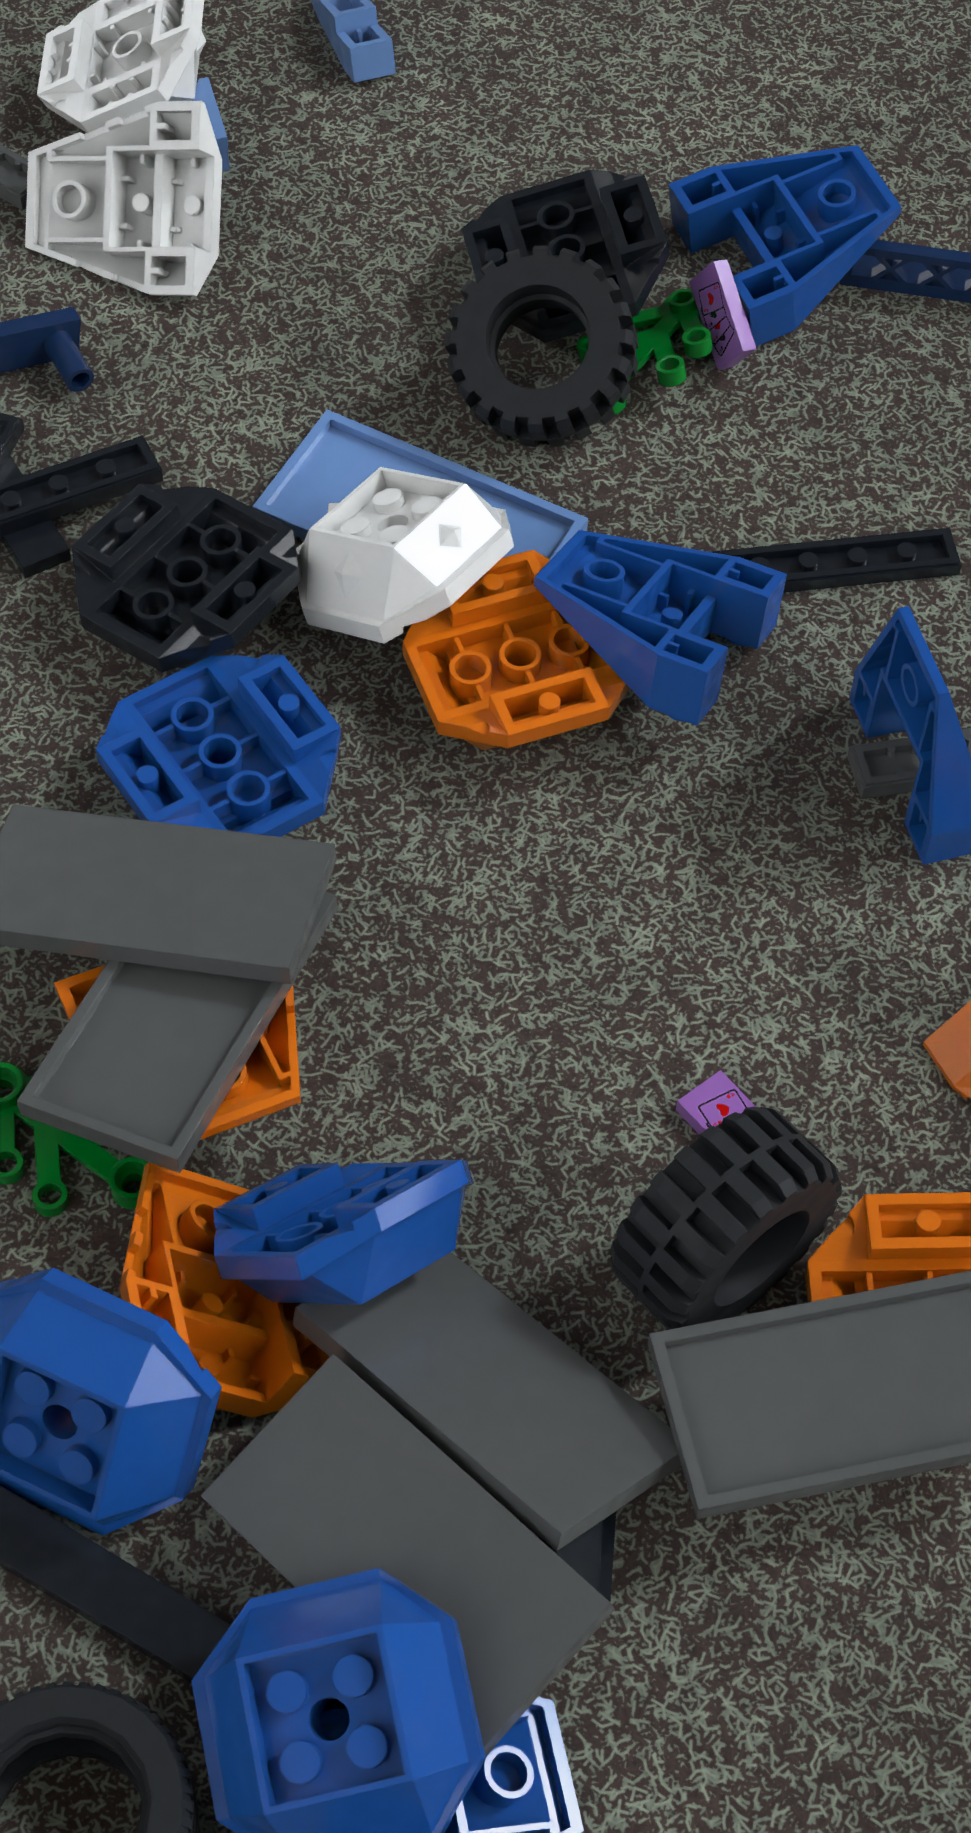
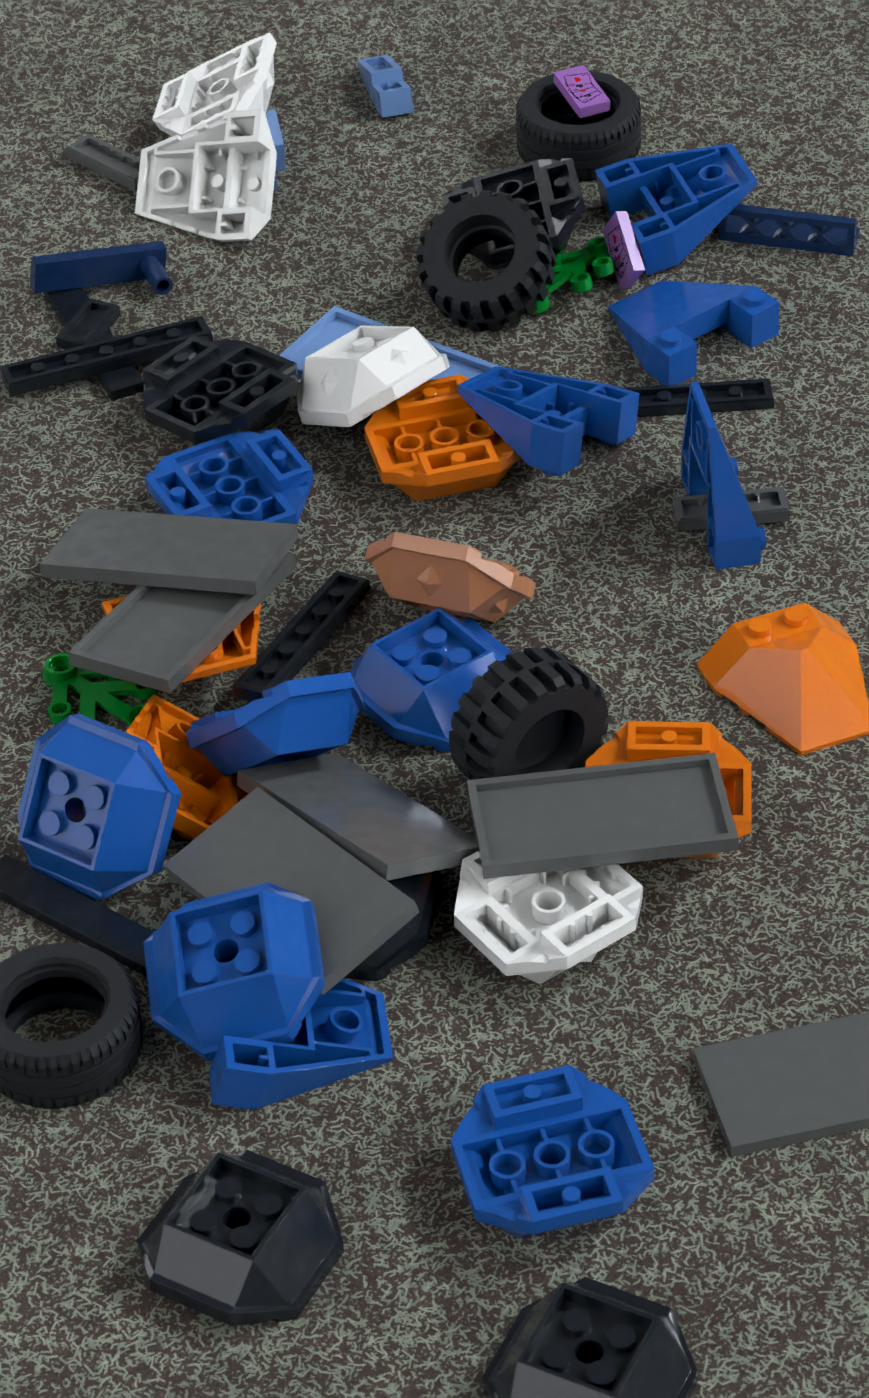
camera: 10 degrees right, 15 degrees down
(353, 1027) = (303, 635): none -> black tile
(564, 921) = (447, 576): none -> nougat piece
(564, 1144) = (421, 672): none -> blue piece
(631, 59) = (553, 130): none -> black tyre
(638, 56) = (581, 91): none -> medium lavender tile
(803, 416) = (671, 314): none -> blue wedge
(803, 1615) = (545, 919): none -> white piece

